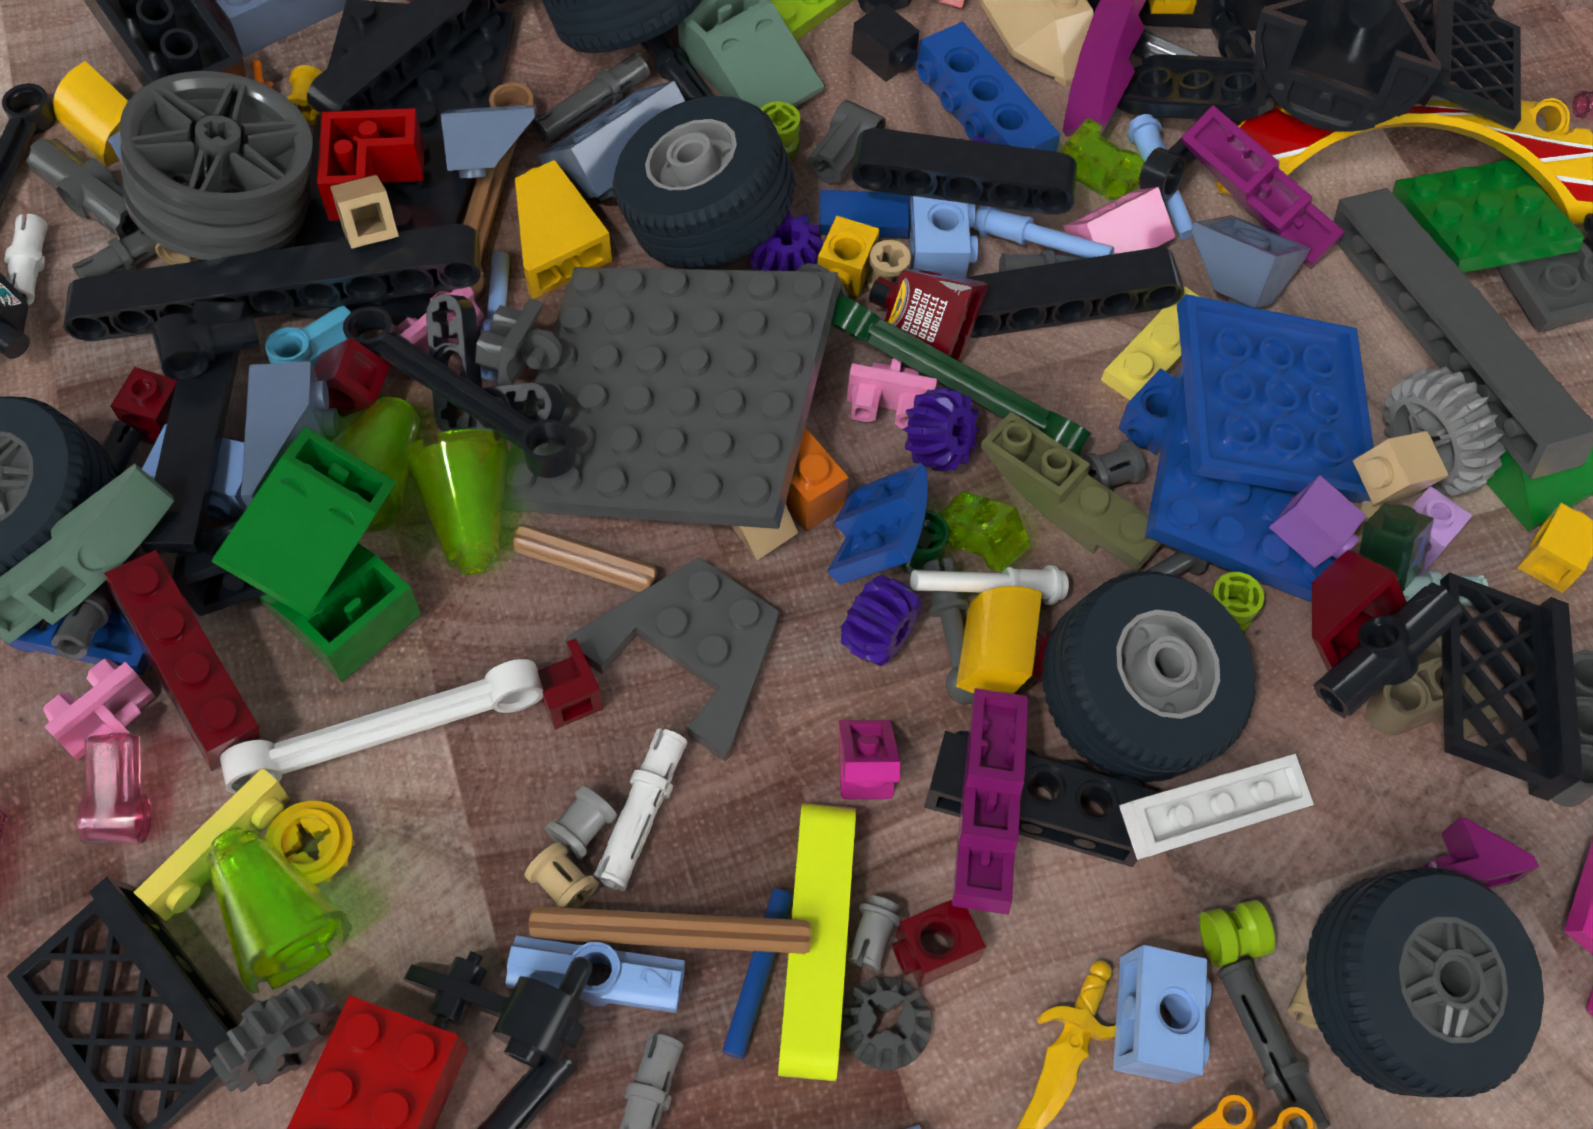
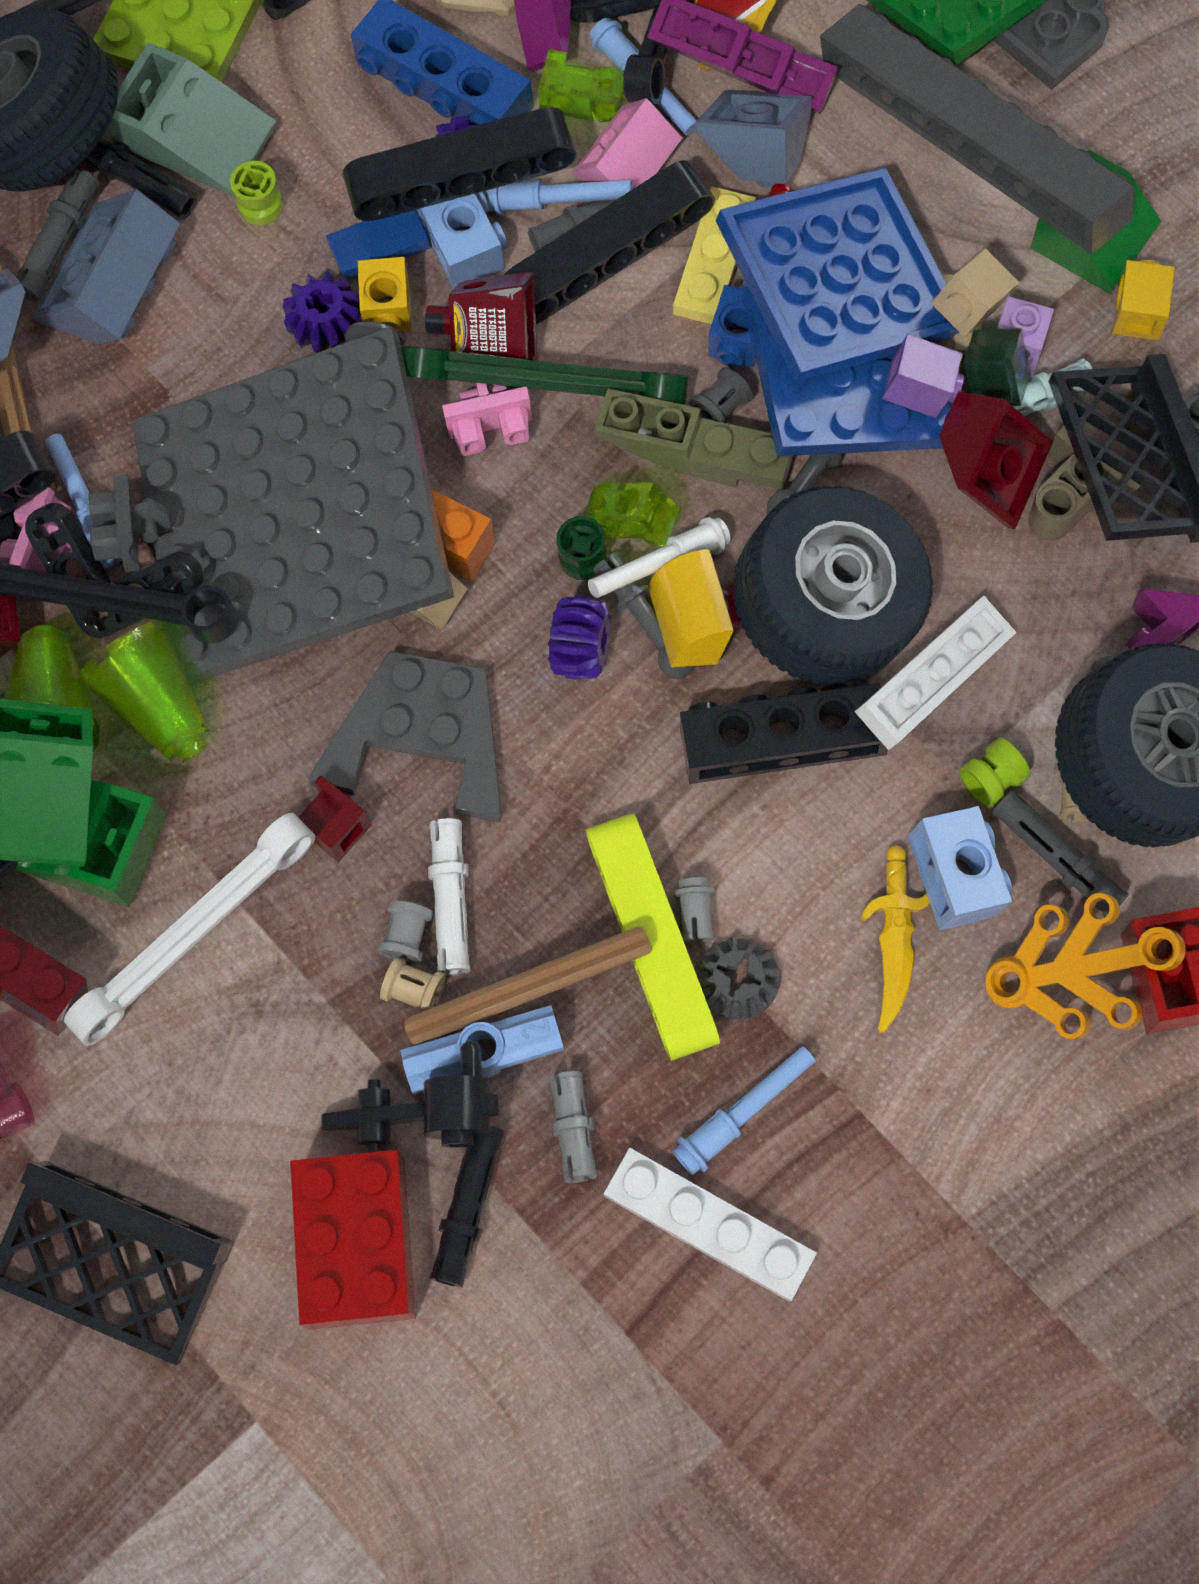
camera: 15 degrees left, 10 degrees up
(183, 874) = (101, 1095): light yellow plate -> none
(270, 910) = (182, 1123): clear neon green cone -> none
(275, 1036) = (247, 1220): dark grey gear -> none
(318, 820) = (178, 1033): yellow gear -> none
(556, 229) = (95, 389): yellow slope -> none
(584, 558) = (286, 698): medium nougat axle -> none
(704, 182) = (217, 283): black wheel -> none
(754, 984) = (616, 995): blue bar -> none
(836, 151) = (324, 160): dark grey piece -> none
(867, 759) = (623, 764): dark pink slope -> none
(880, 524) = (539, 549): blue slope -> none
(885, 42) = (314, 47): black brick -> none
(897, 259) = (434, 287): tan bush -> none
(941, 429) = (552, 433): dark purple gear -> none
(954, 926) = (759, 872): dark red brick -> none
(991, 802) = (746, 754): magenta slope -> none
(1244, 597) = (890, 479): lime wheel -> none
(1388, 650) = (1026, 469): black piece -> none
(1456, 422) = (1005, 224): light grey gear -> none

